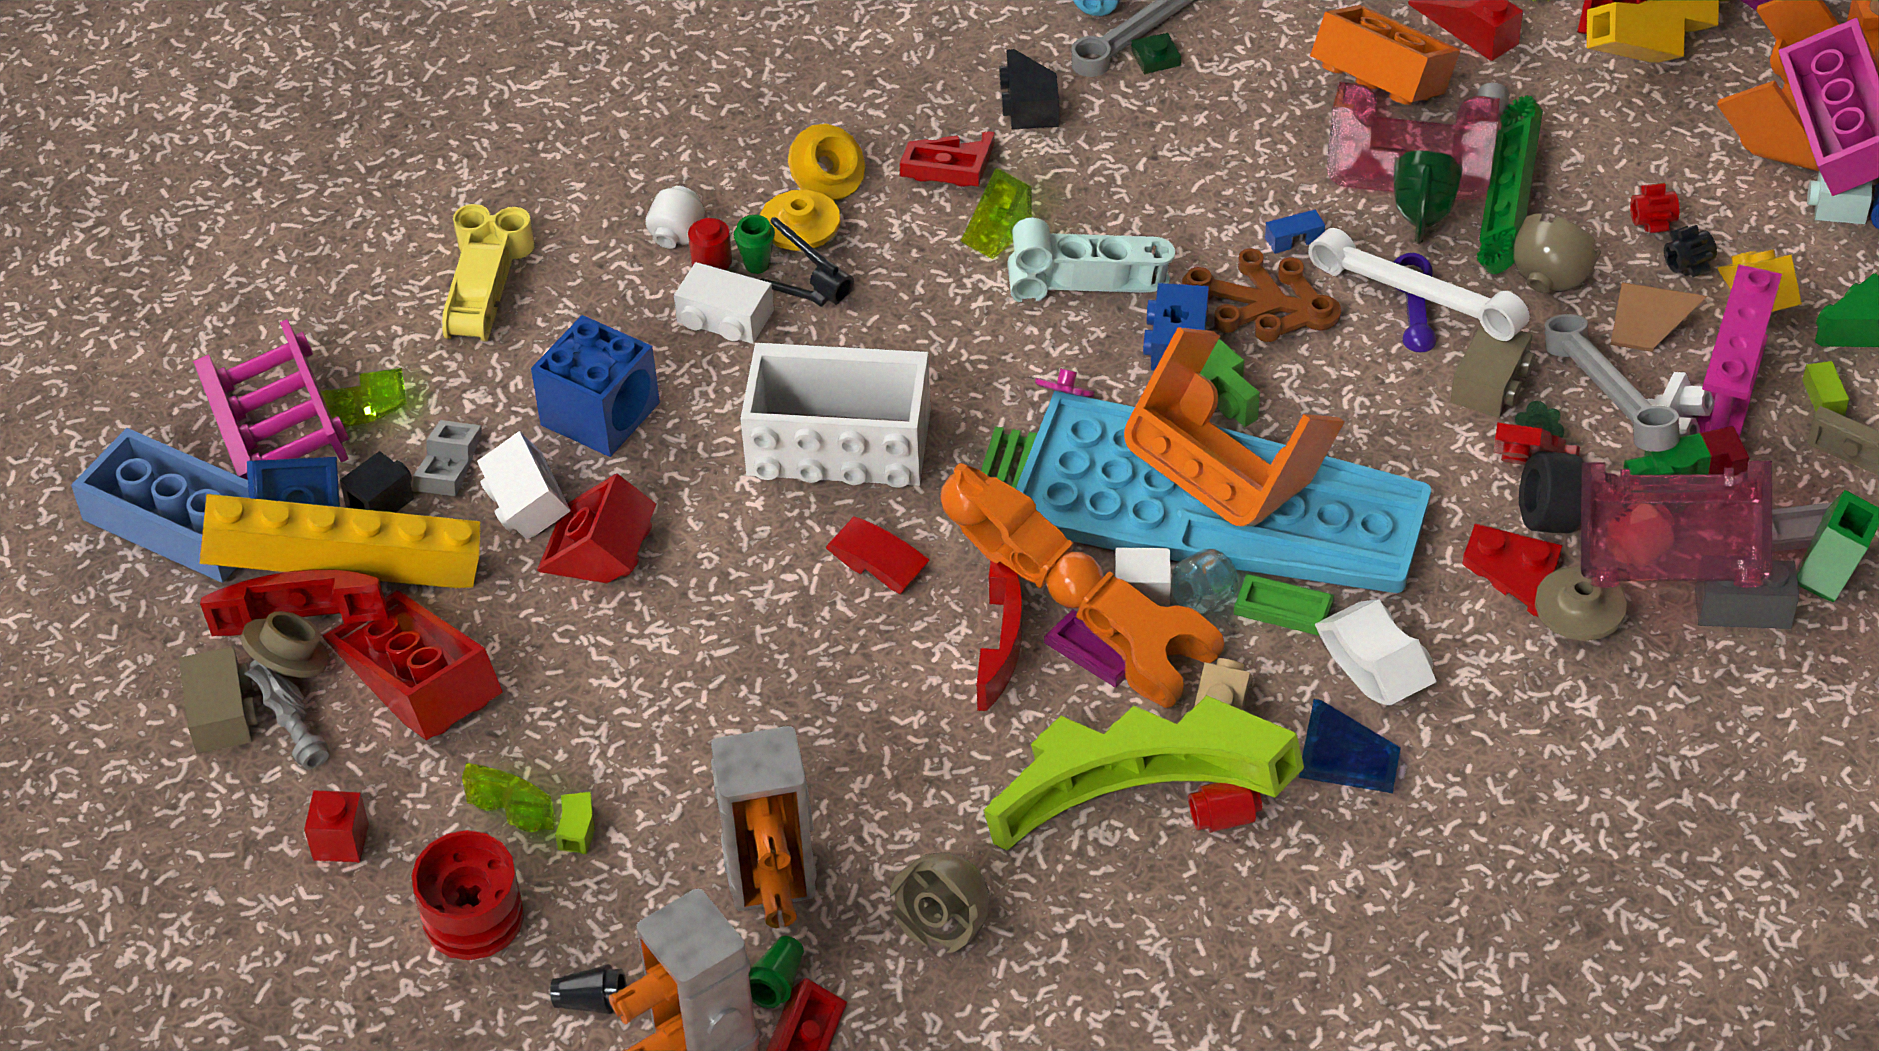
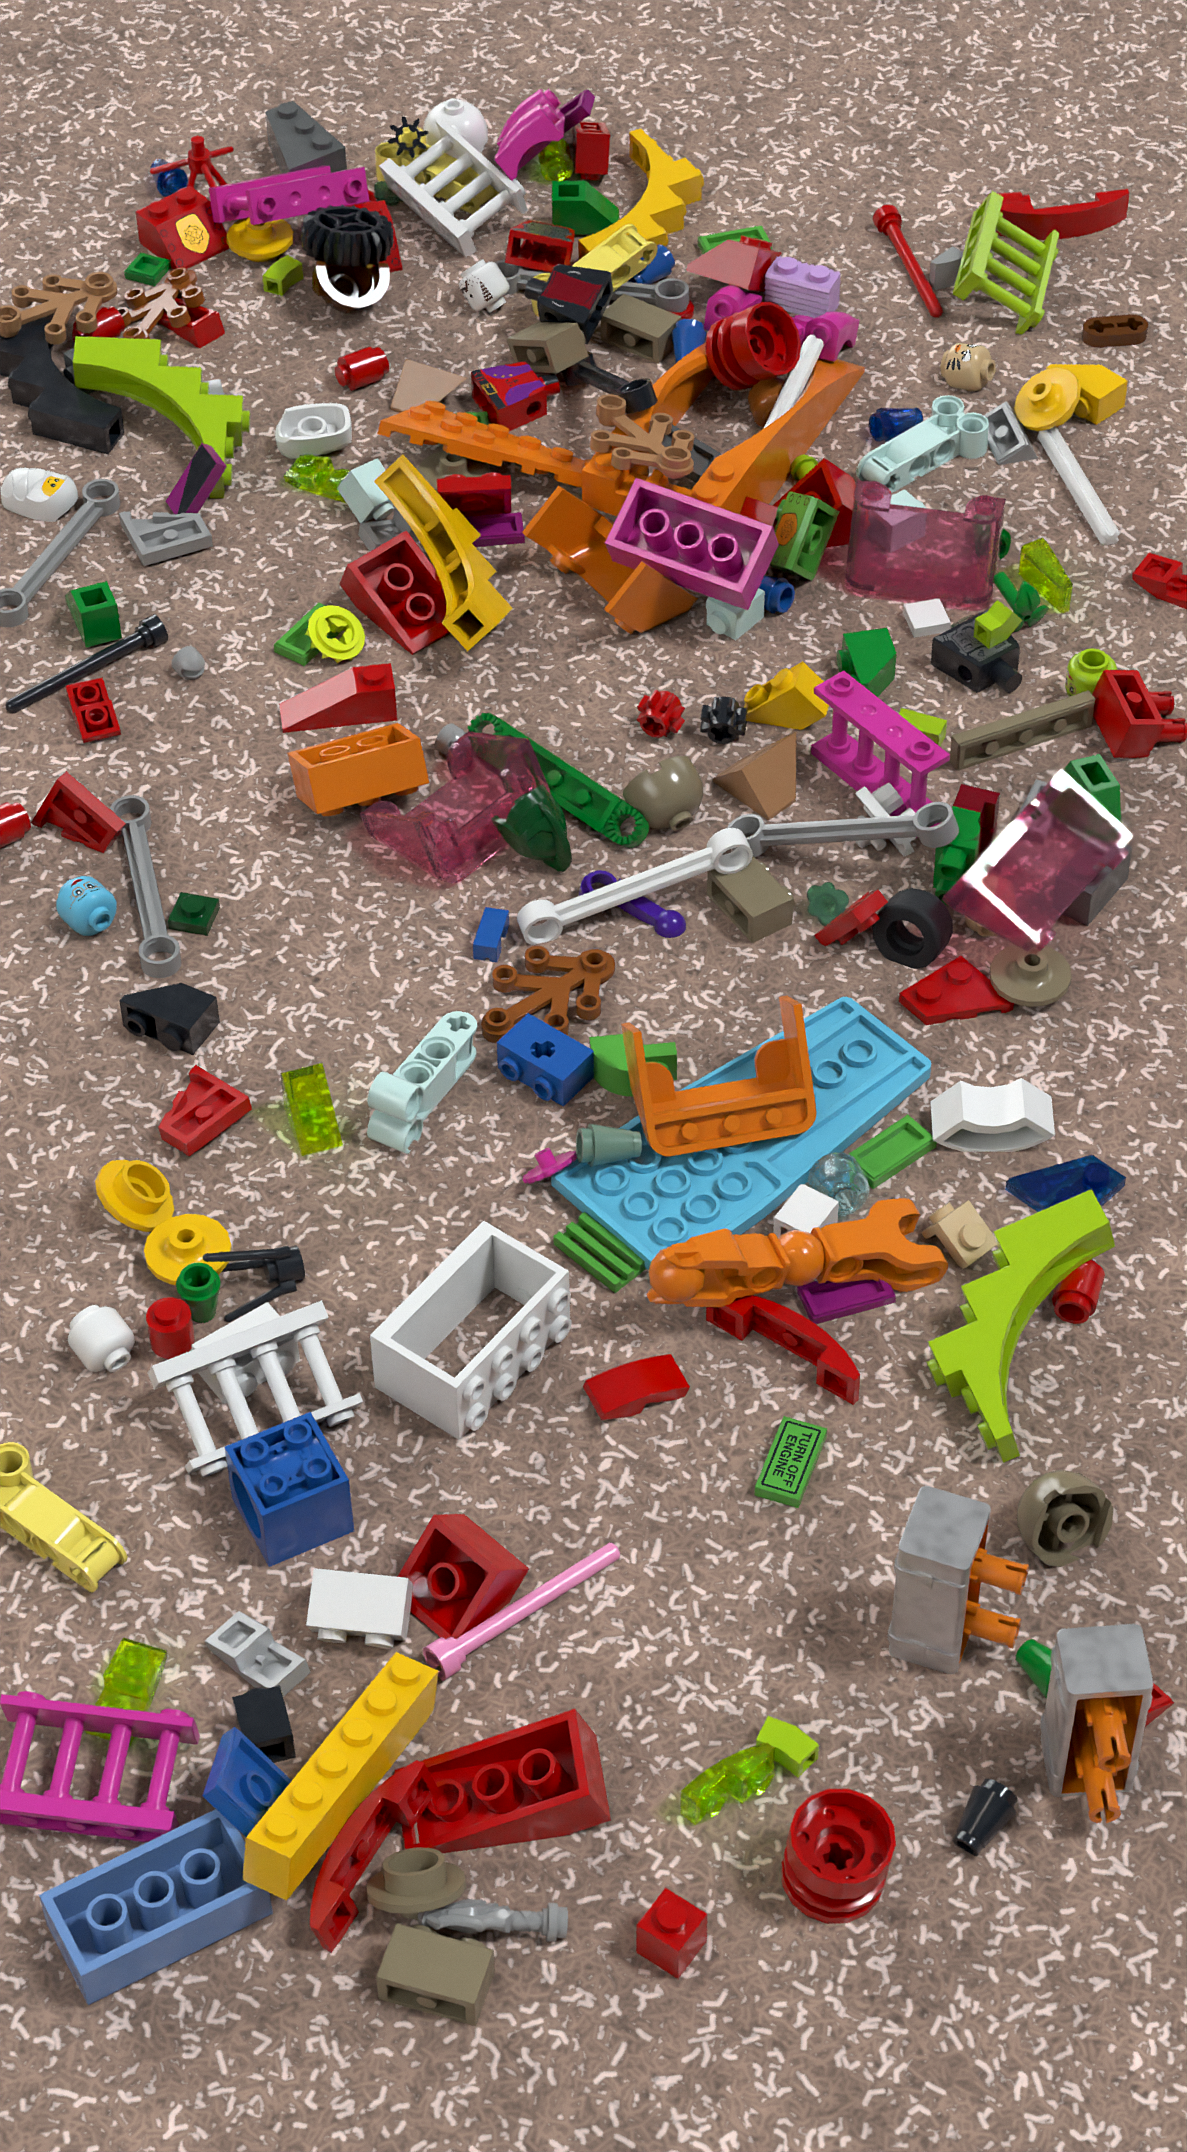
camera: 60 degrees left, 0 degrees up
(520, 565) = (452, 1652): none -> bright pink piece
(713, 293) = (262, 1344): none -> white fence
(878, 693) = (790, 1462): none -> bright green tile
(1102, 401) = (606, 1144): none -> sand green cone

